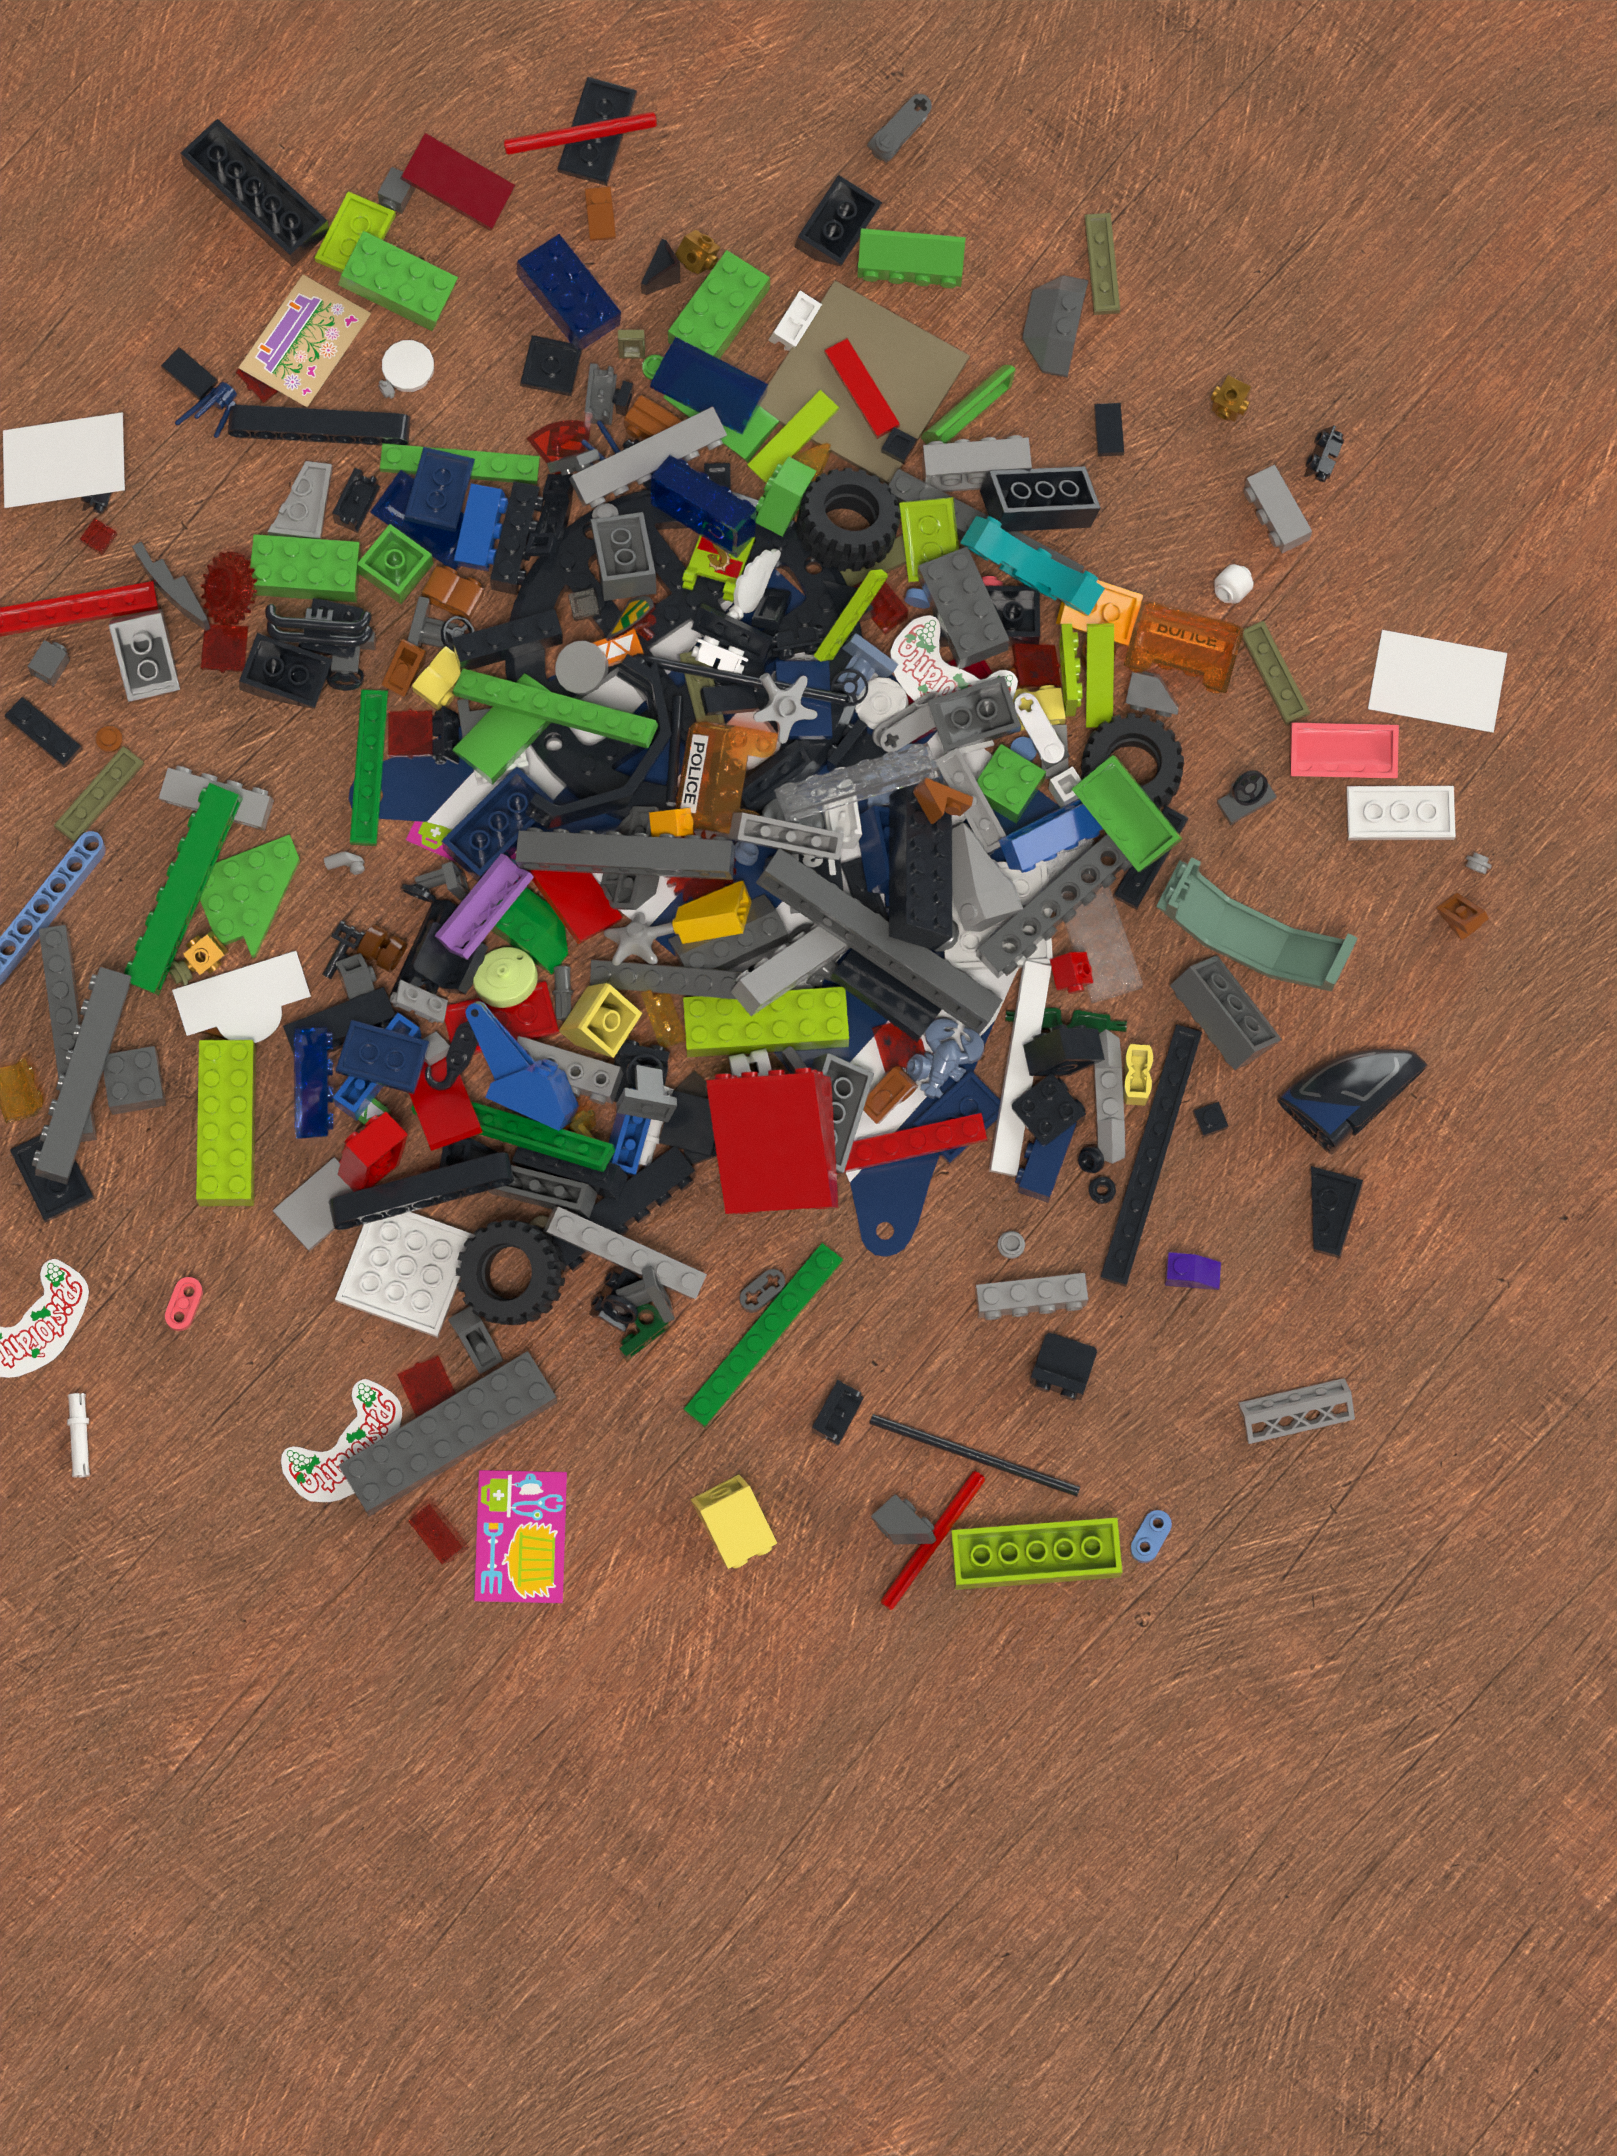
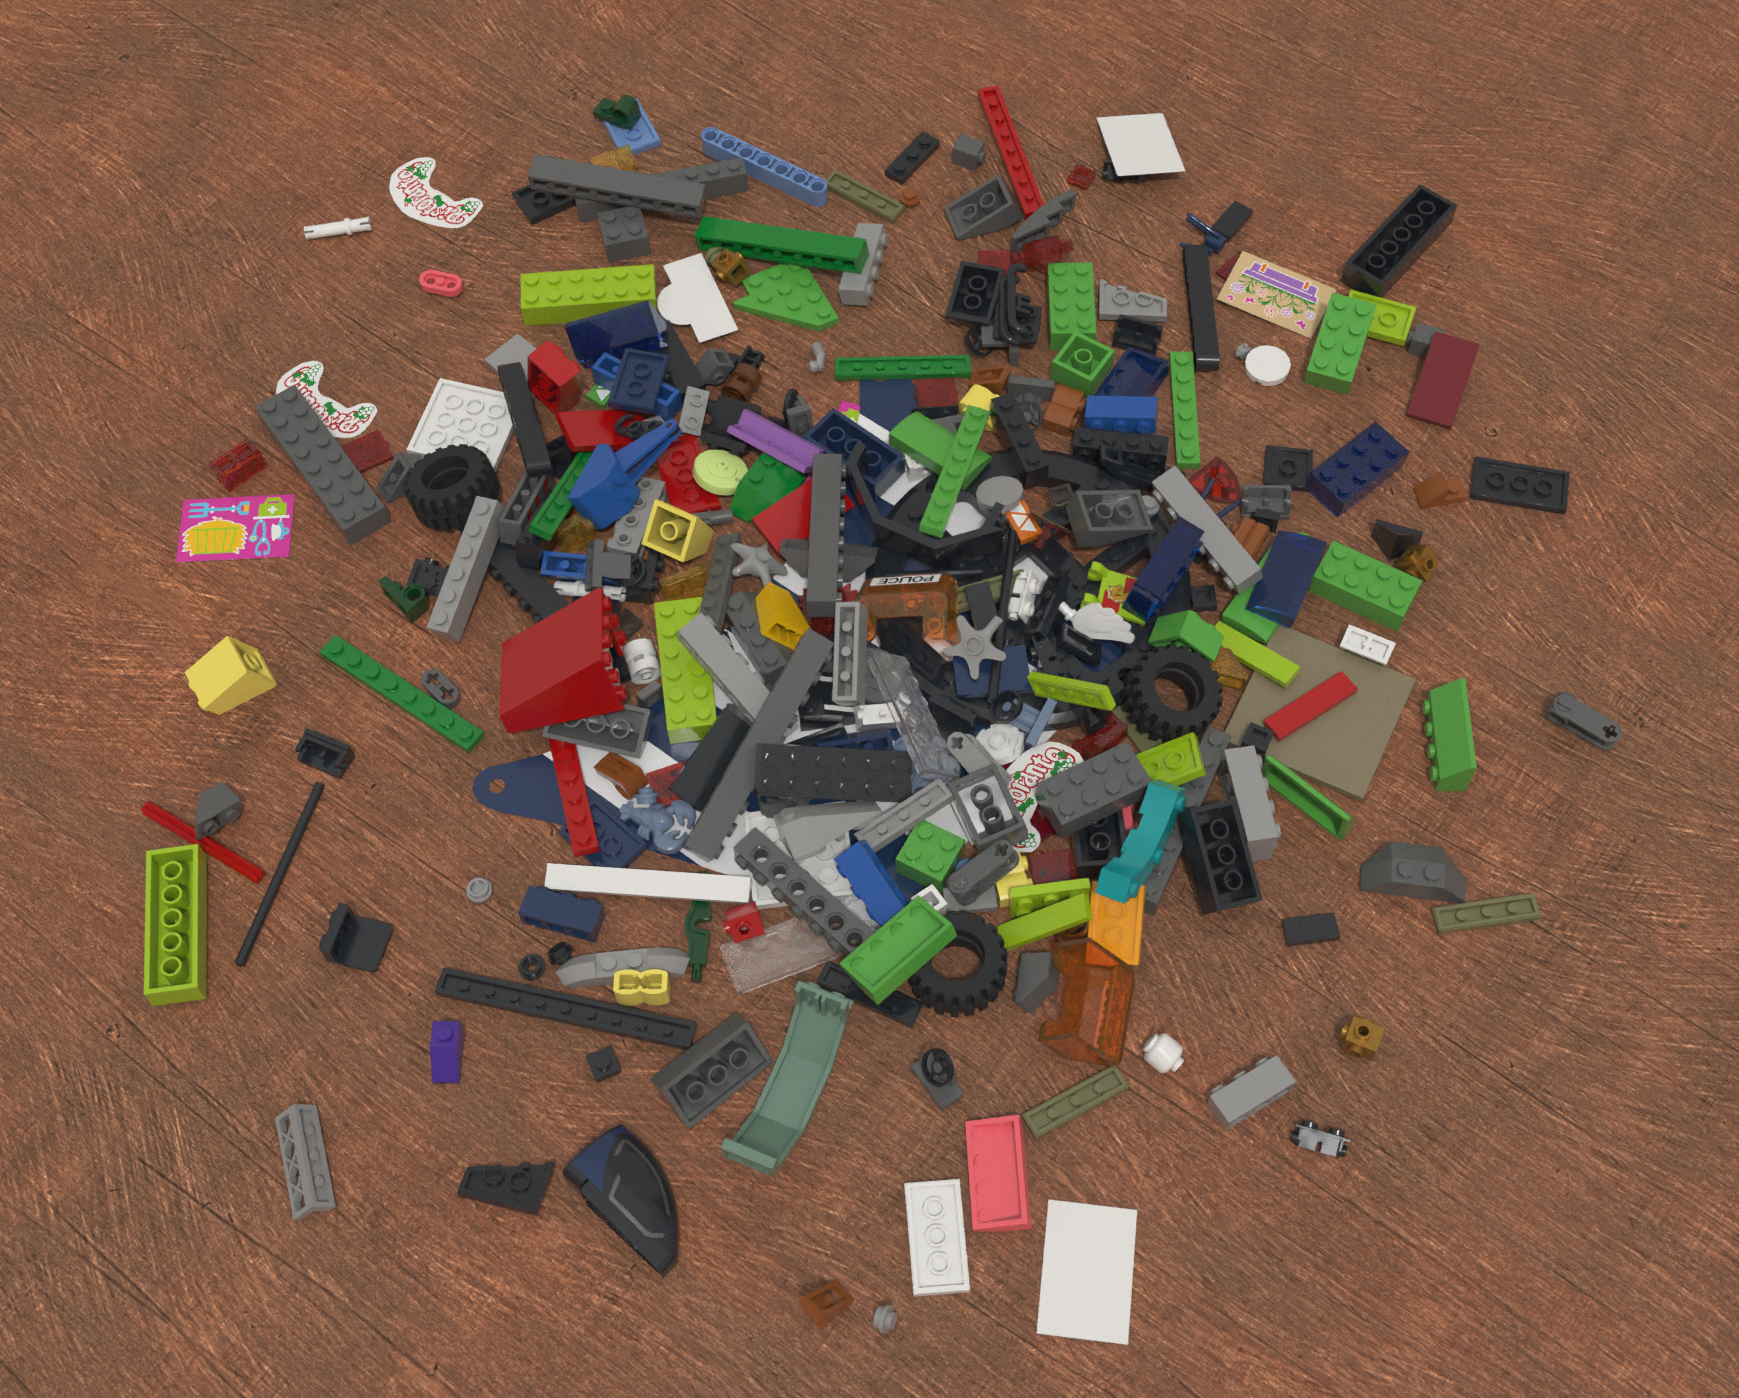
camera: 90 degrees right, 15 degrees down
(439, 489) = (1147, 380): dark blue tile -> none
(573, 462) = (1194, 478): dark grey plate -> none
(580, 133) = (1512, 467): red axle -> none
(631, 344) = (1316, 515): olive tile -> none
(639, 1294) = (426, 586): dark grey piece -> none
(673, 822) = (859, 569): light orange brick -> none
(837, 222) = (1484, 670): black slope -> none
(937, 798) = (897, 773): dark orange slope -> none
(1031, 1295) = (426, 907): light grey brick -> none
(1049, 1109) = (606, 909): black bracket -> none
(1063, 1051) = (656, 907): black brick -> none
(1150, 1535) = (188, 1031): medium blue plate -> none

